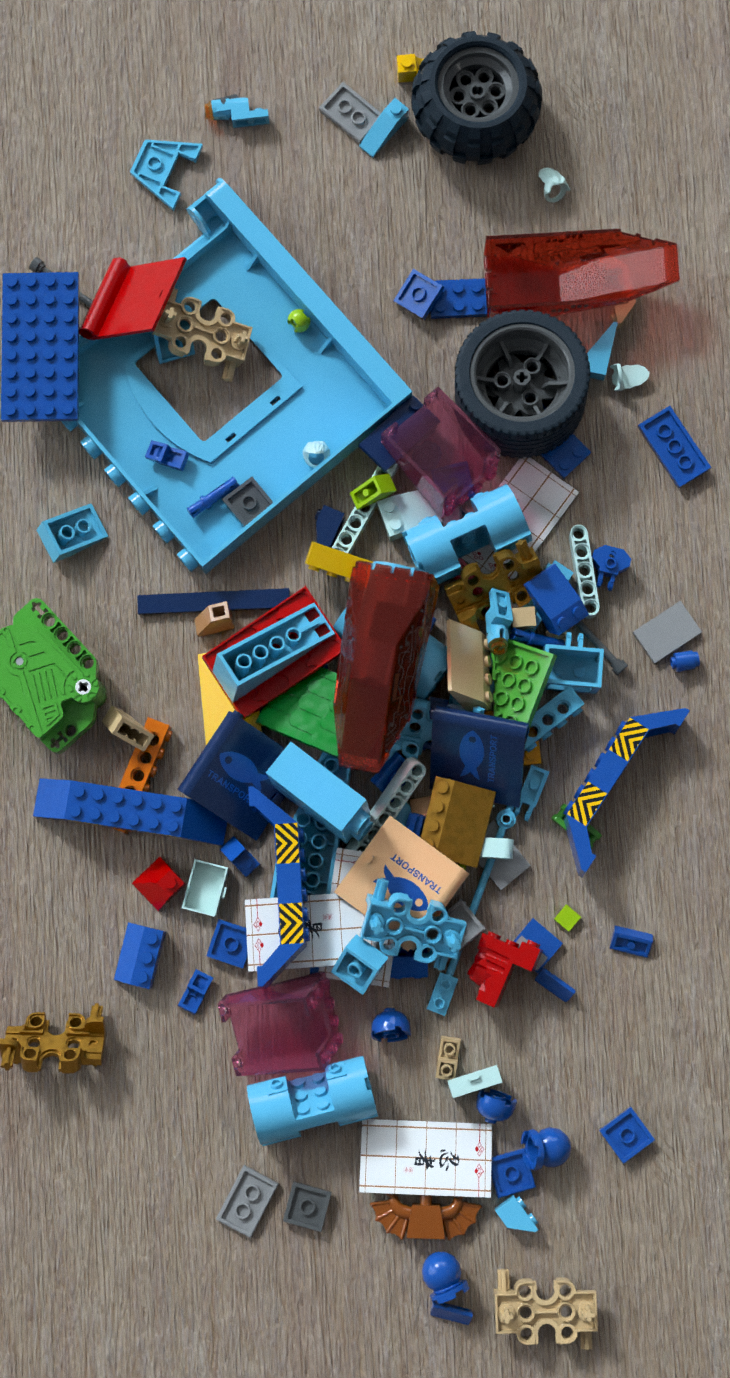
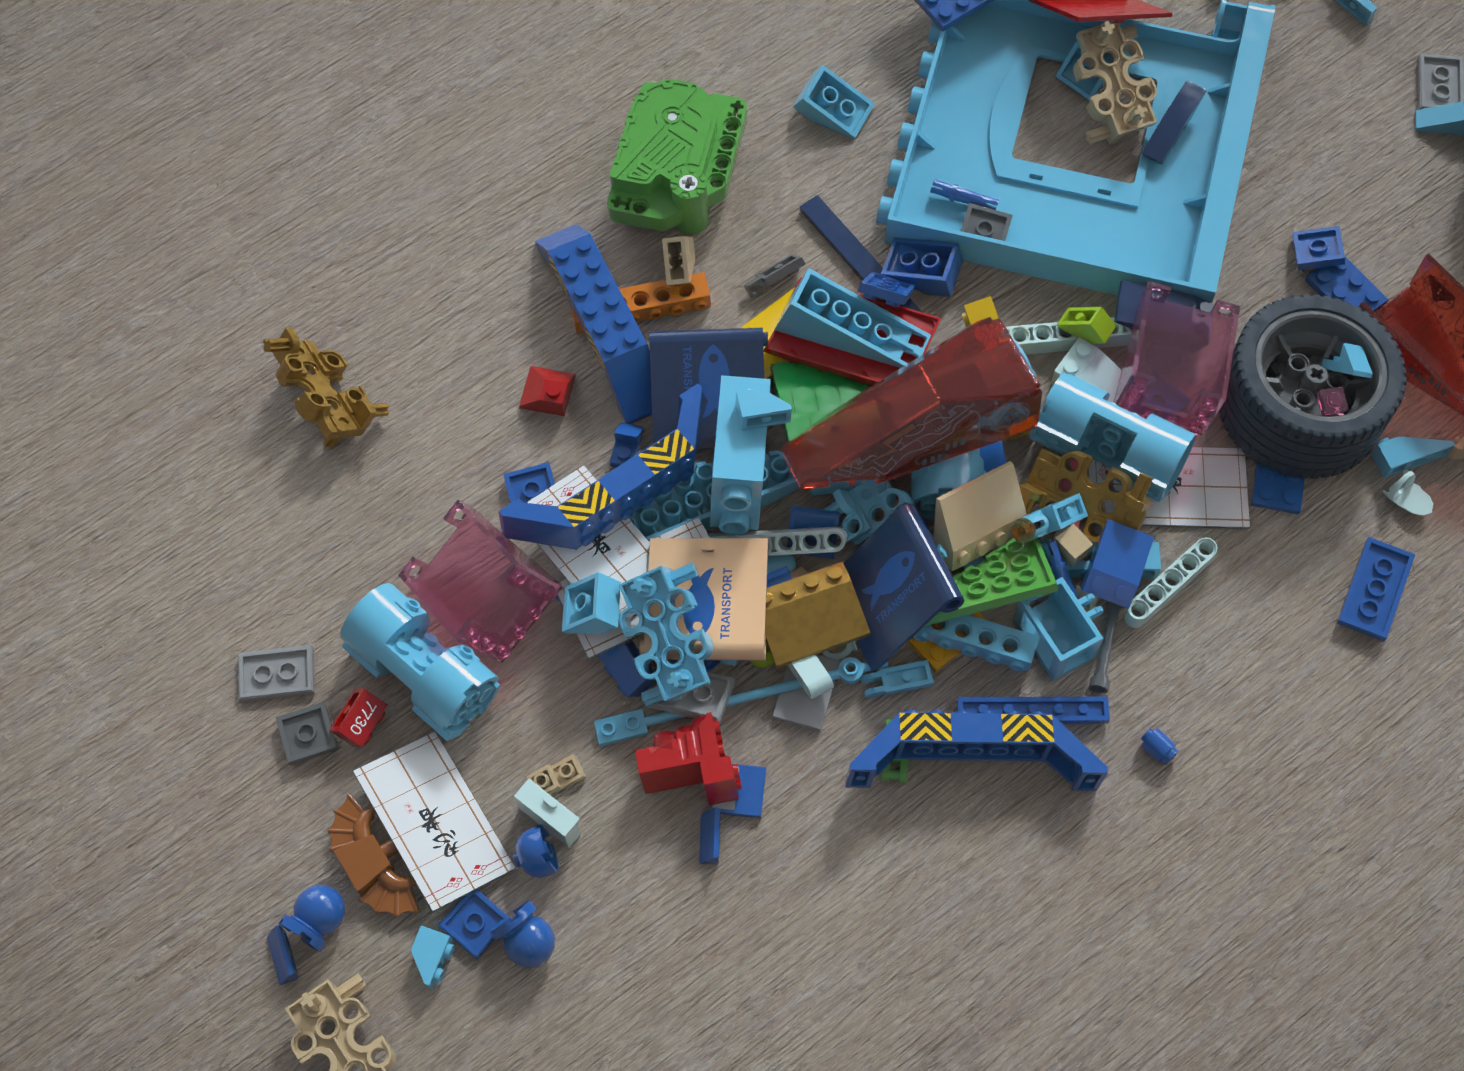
camera: 55 degrees right, 15 degrees down
(139, 955) = (463, 418): blue slope -> none
(166, 455) = (971, 133): blue slope -> none
(179, 668) = (772, 275): none -> dark grey hinge
(195, 992) = (465, 489): blue slope -> none
(205, 888) = (572, 432): light aqua container -> none
(214, 619) = (846, 271): medium nougat slope -> none
(246, 563) = (924, 263): none -> blue slope
(257, 605) = (887, 288): none -> blue plate
(258, 314) = (1174, 122): none -> dark blue slope
(299, 320) = (1198, 160): lime piece -> none
(312, 766) = (761, 409): none -> medium azure slope
(315, 447) = (1084, 244): light aqua piece -> none
(321, 1165) = (359, 717): none -> red brick
(328, 525) = (1021, 311): dark blue slope -> none
(390, 1025) = (550, 692): blue cylinder -> none
(529, 350) = (1351, 361): none -> medium azure slope
(546, 382) = (1332, 401): none -> clear pink plate
(567, 918) = (791, 804): lime tile -> none
(608, 565) = (1199, 601): blue hinge -> none
(608, 722) = (1065, 709): none -> blue plate
(626, 1134) = (597, 1020): blue plate -> none
(631, 941) = (814, 889): blue slope -> none
(667, 632) = (1175, 710): light grey tile -> none

